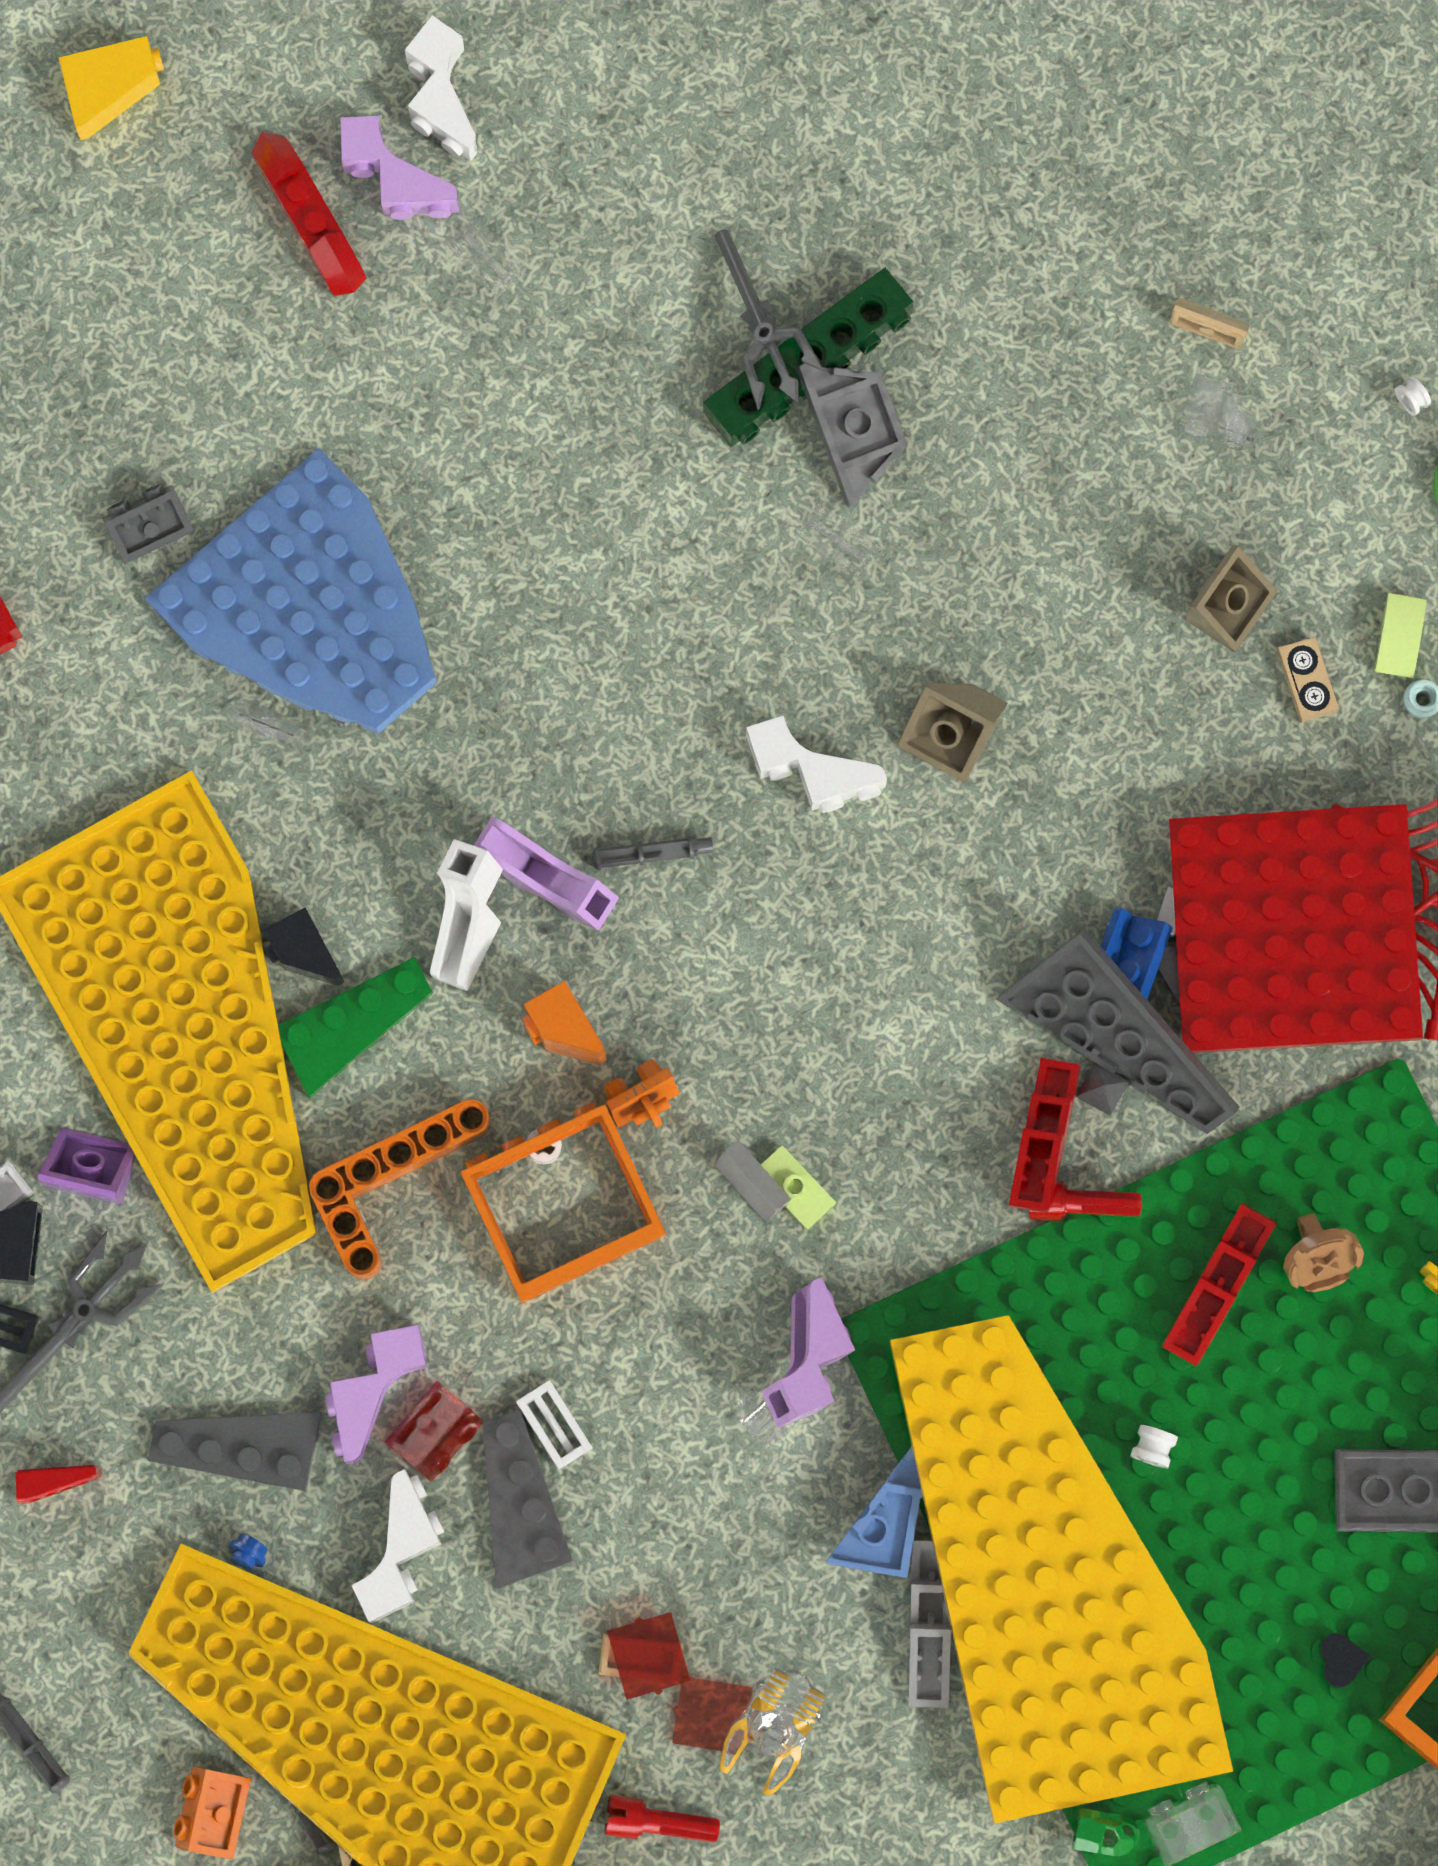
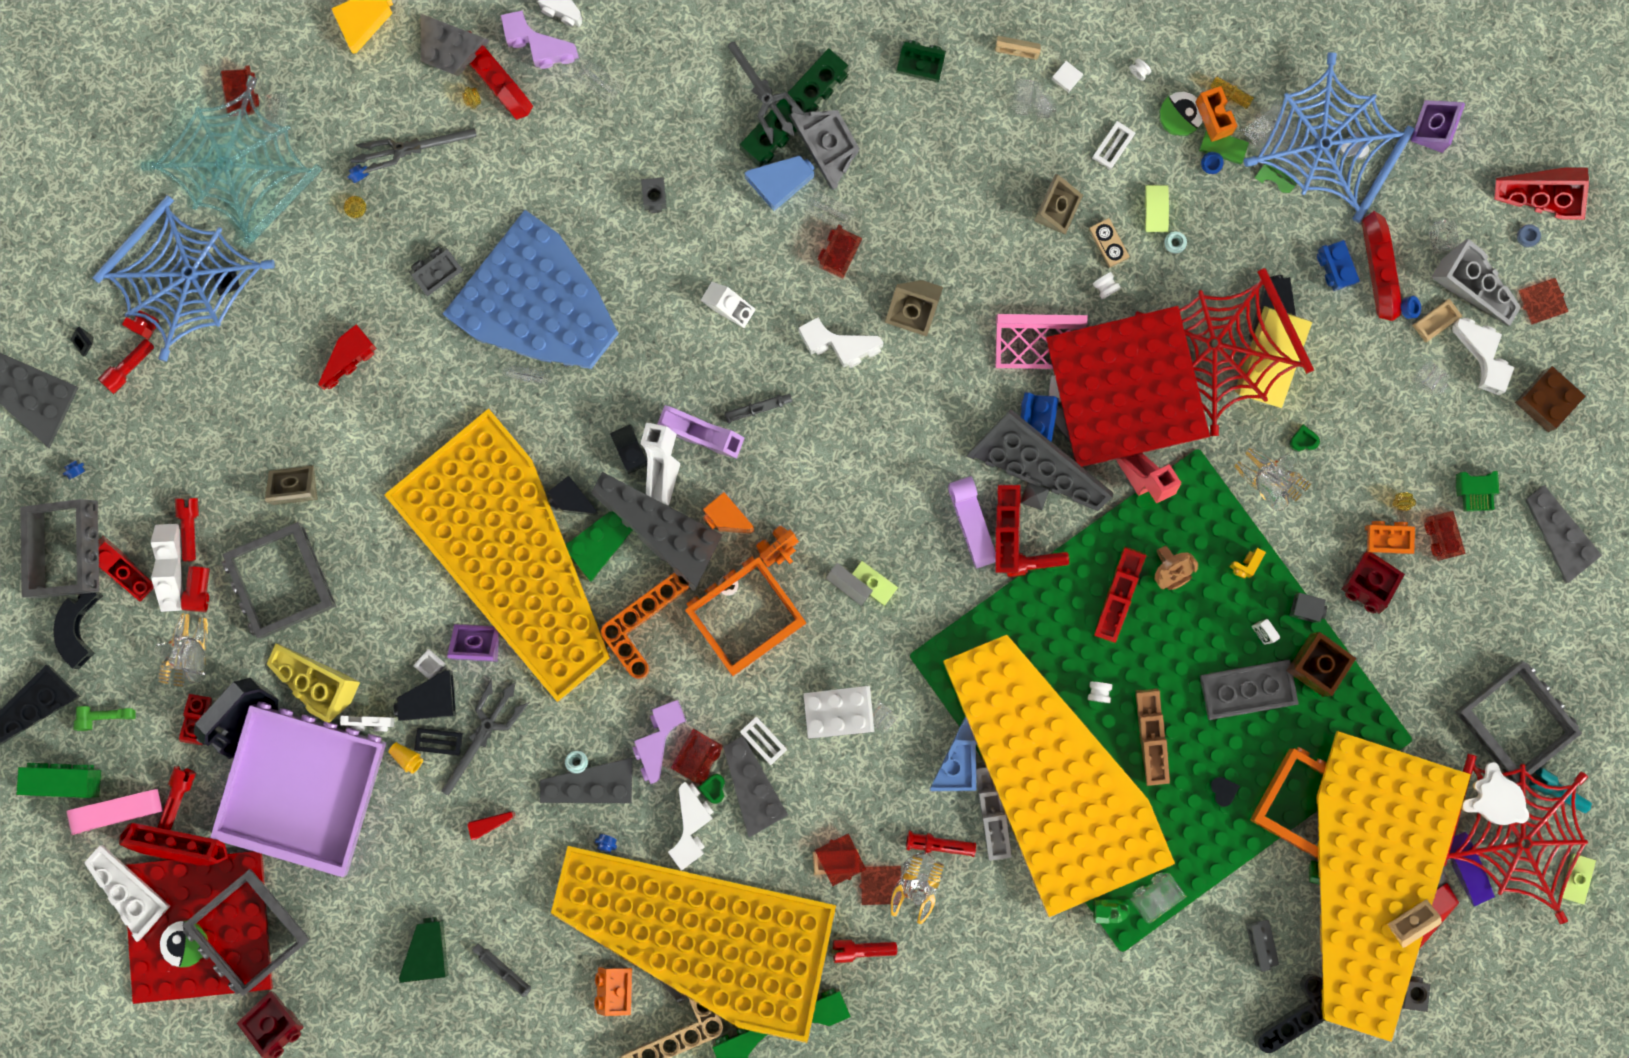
camera: 15 degrees left, 5 degrees up
(33, 394) = (355, 207): none -> clear yellow plate
(49, 338) = (356, 173): none -> blue plate
(129, 311) = (402, 149): none -> dark grey piece
(222, 1391) = (576, 755): none -> light aqua plate
(241, 152) = (447, 45): none -> flat silver wing
(265, 245) = (471, 97): none -> clear yellow plate
(417, 883) = (629, 449): none -> black slope
(450, 1491) = (712, 788): none -> green tile
(453, 1033) = (665, 531): none -> dark grey wing
(538, 446) = (654, 185): none -> dark grey brick
(633, 667) = (728, 304): none -> white slope
(693, 1398) = (839, 712): none -> white plate
(762, 473) = (780, 179): none -> medium blue slope
(808, 1656) = (930, 843): none -> red pin
(816, 1342) = (901, 667): lavender arch -> none
(840, 613) = (839, 252): none -> clear red bracket
(985, 1111) = (972, 521): none -> lavender beam
(1039, 317) = (921, 61): none -> dark green bracket
(1156, 791) = (1032, 321): none -> bright pink fence
(1232, 1542) = (1152, 737): none -> medium nougat slope
(1285, 386) = (1067, 76): none -> white tile
(1290, 750) = (1106, 285): none -> white wheel
(1303, 1090) = (1147, 477): none -> coral arch
(1323, 539) = (1103, 161): none -> white tile

